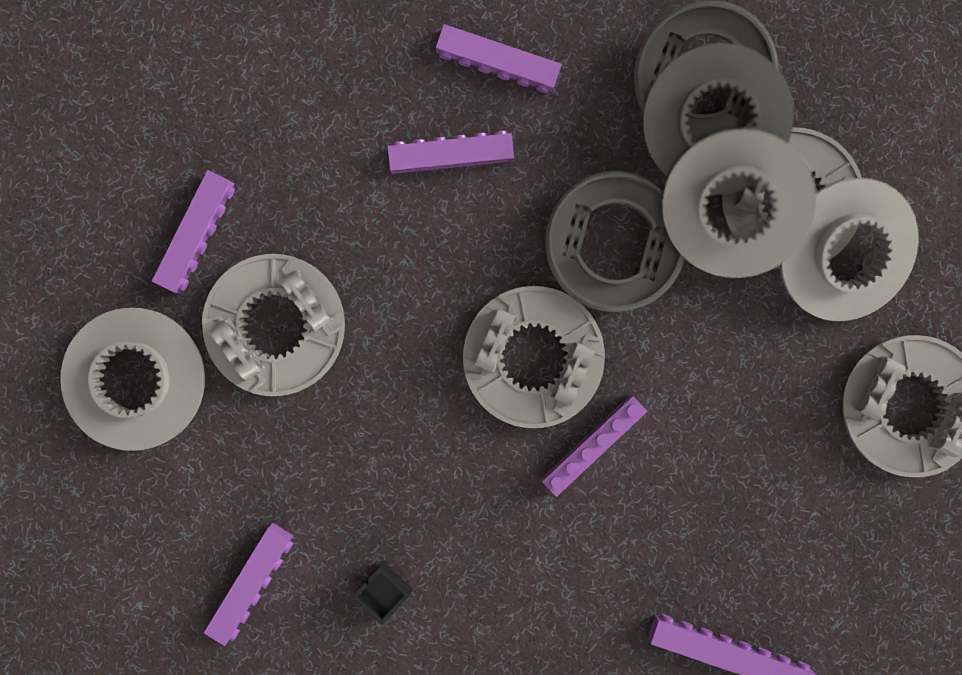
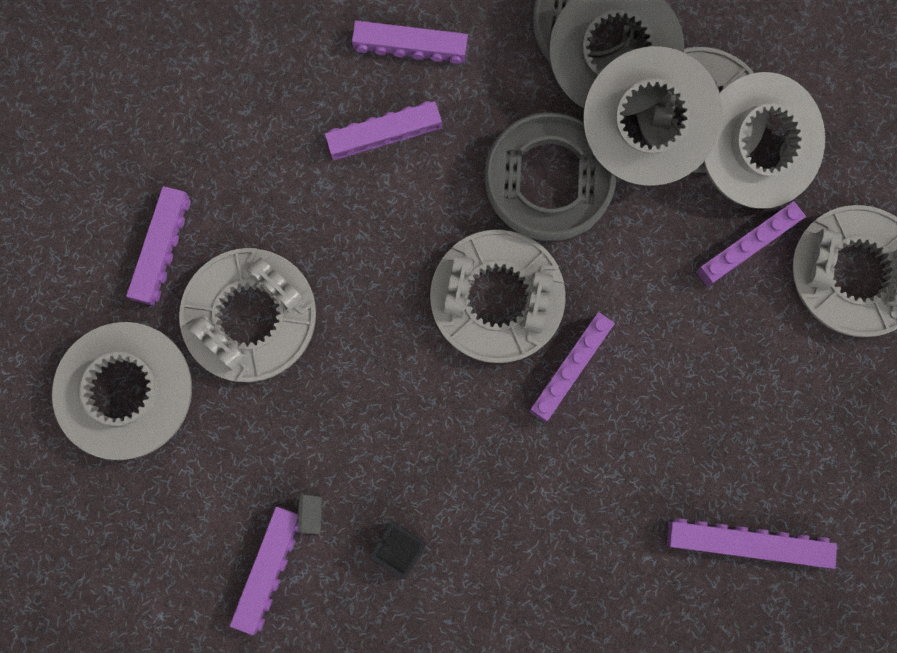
camera: 15 degrees left, 10 degrees down
(300, 539) = (309, 514): none -> dark grey piece
(808, 354) = (750, 244): none -> medium lavender brick

